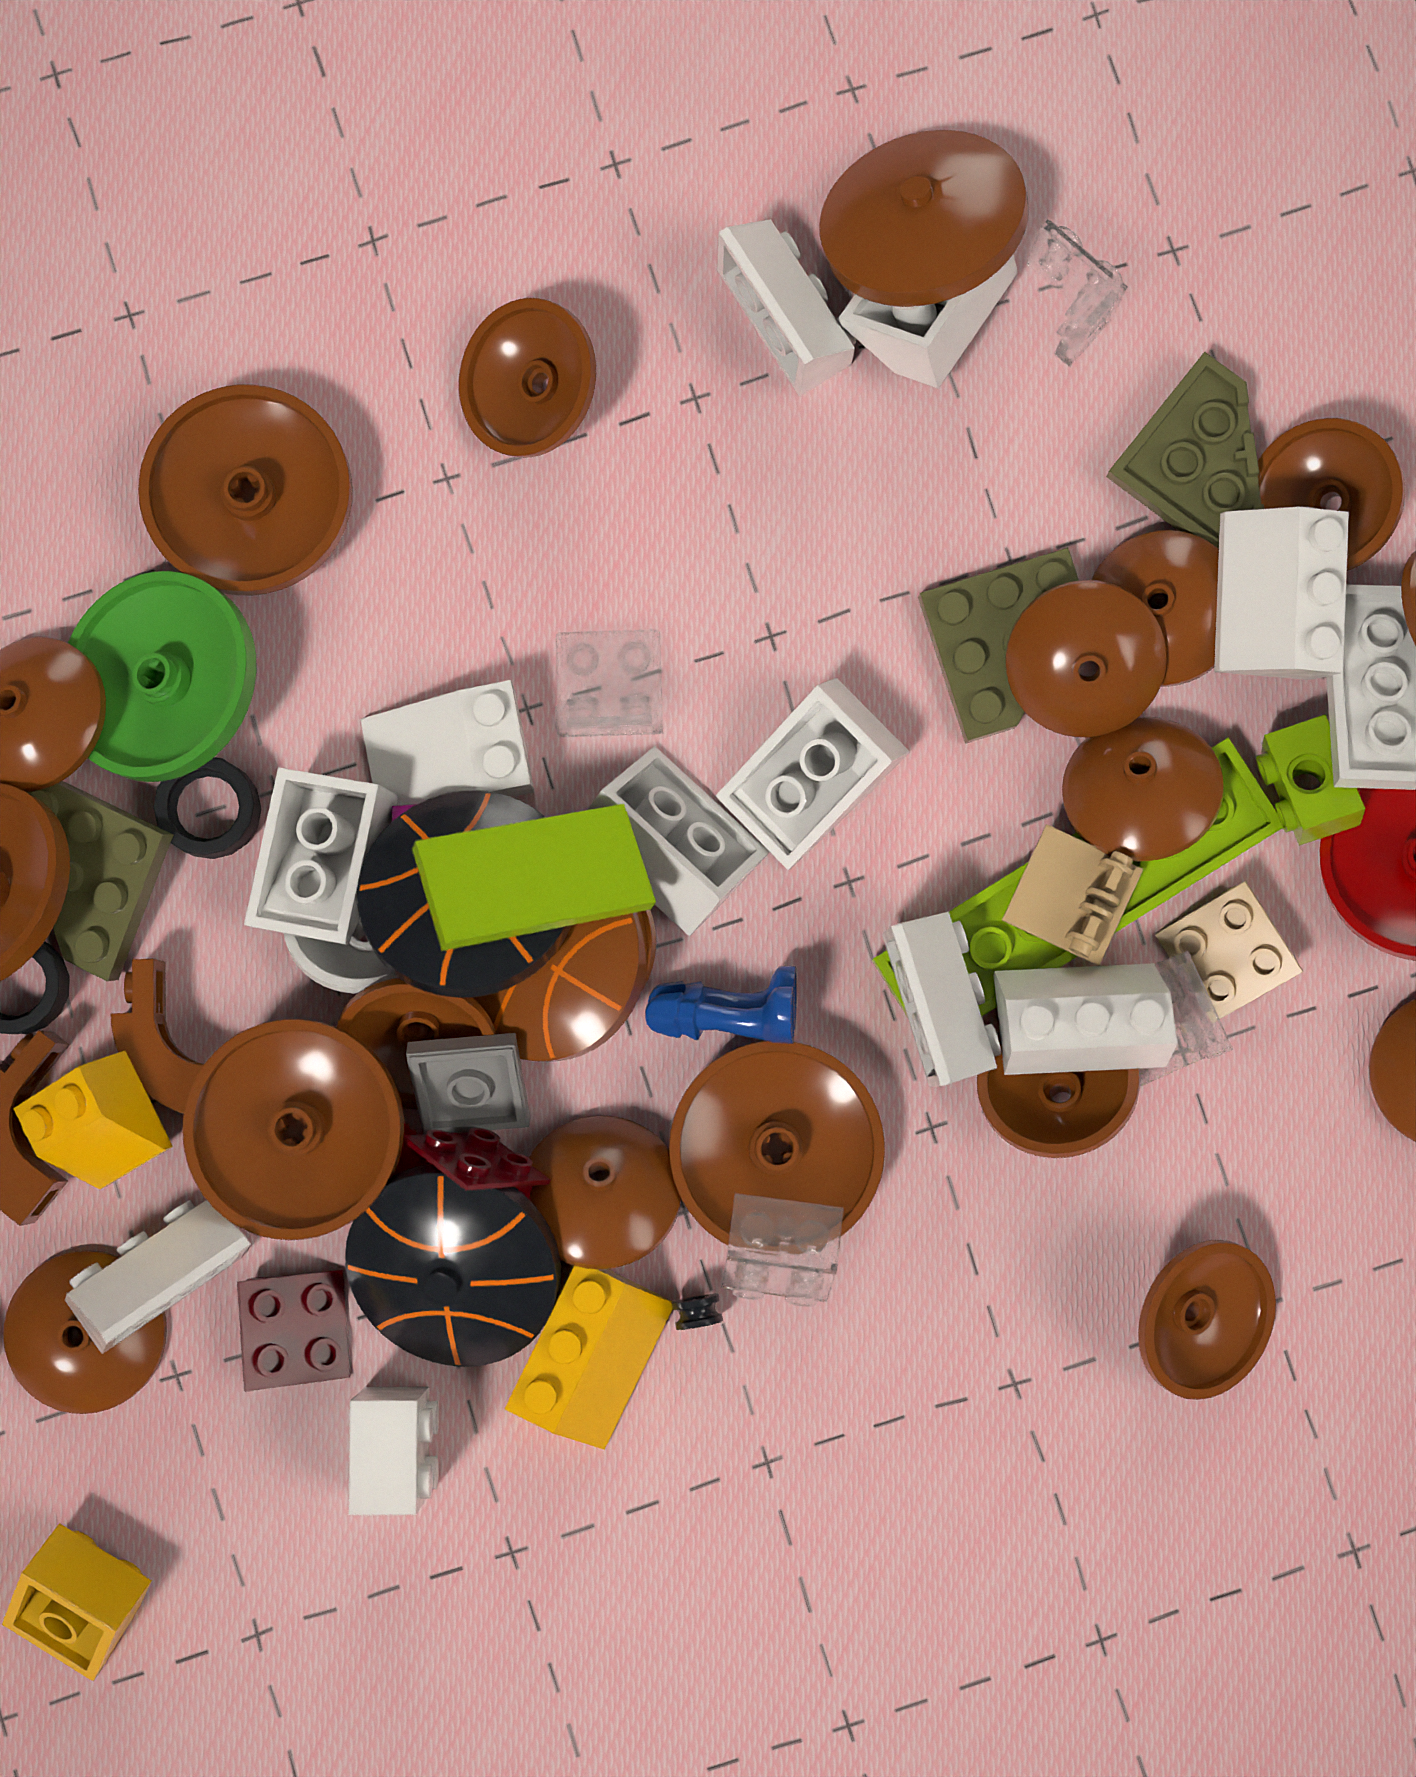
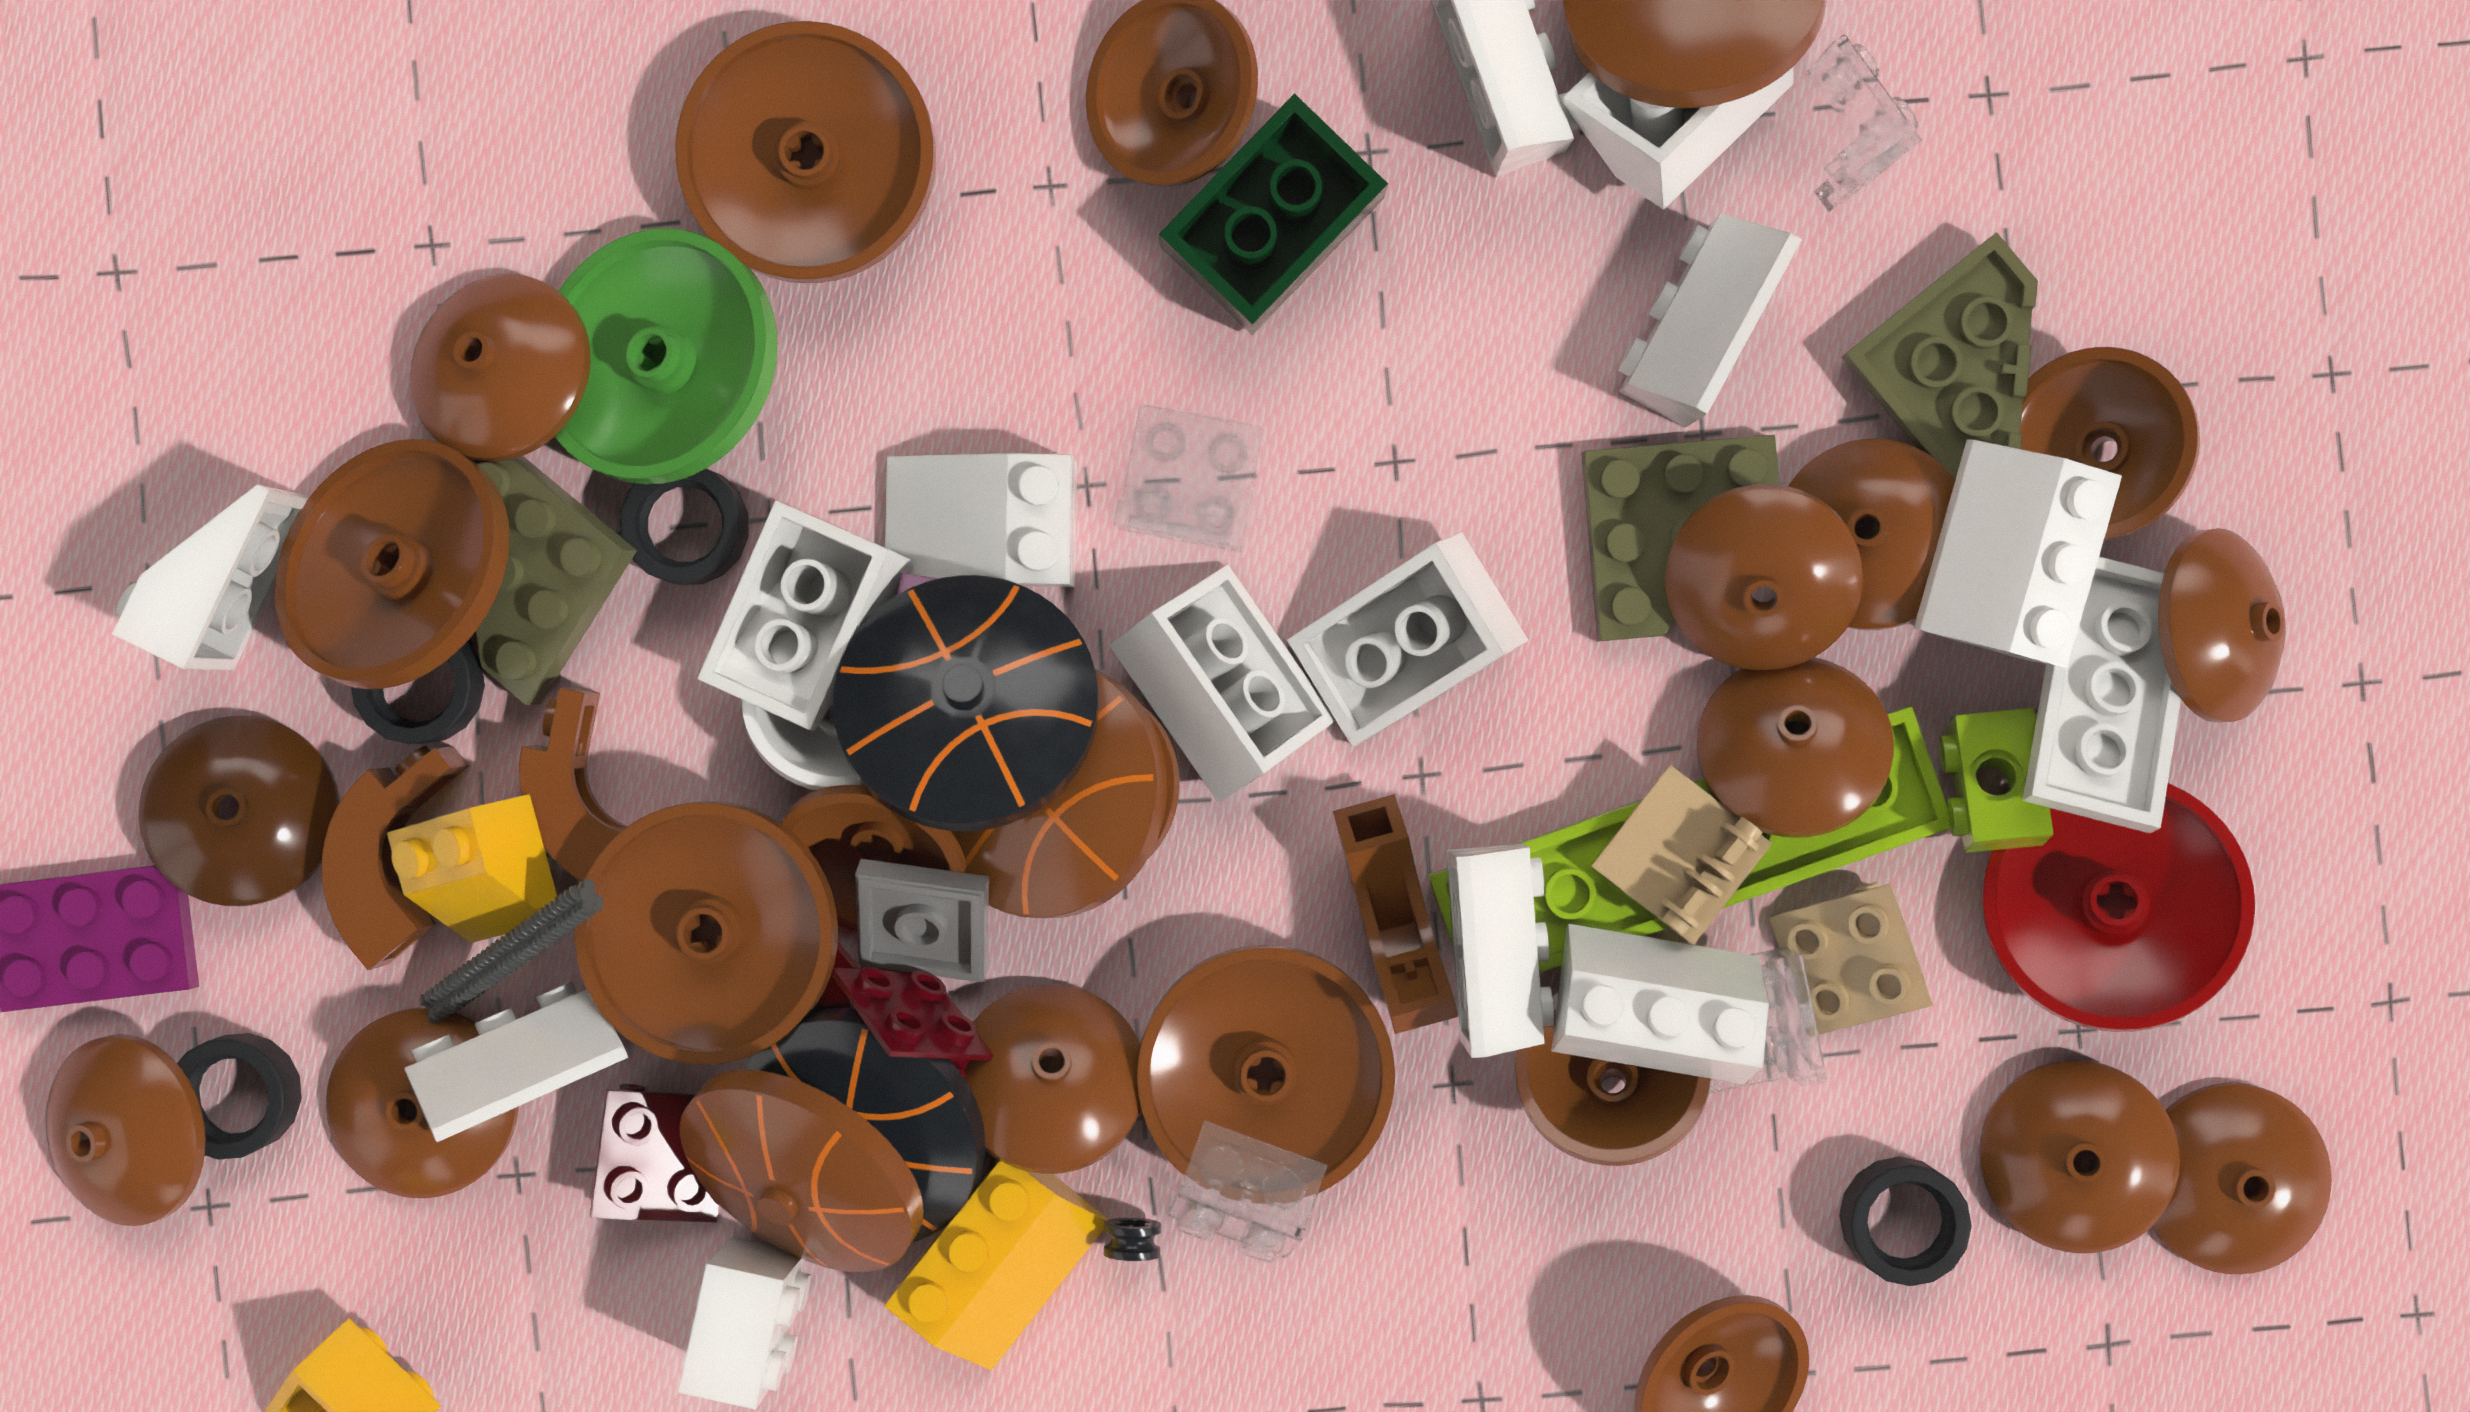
camera: 20 degrees right, 5 degrees up
(136, 1182) = (512, 950): none -> dark grey axle
(413, 1308) = (801, 1170): none -> dark orange dish
(532, 876) = (1046, 704): lime tile -> none
(629, 459) = (1273, 214): none -> dark green brick
(693, 1008) = (1207, 889): blue piece -> none
(851, 993) = (1394, 914): none -> dark orange arch
(991, 465) = (1706, 317): none -> white slope
(1365, 1155) = (1943, 1252): none -> black tyre

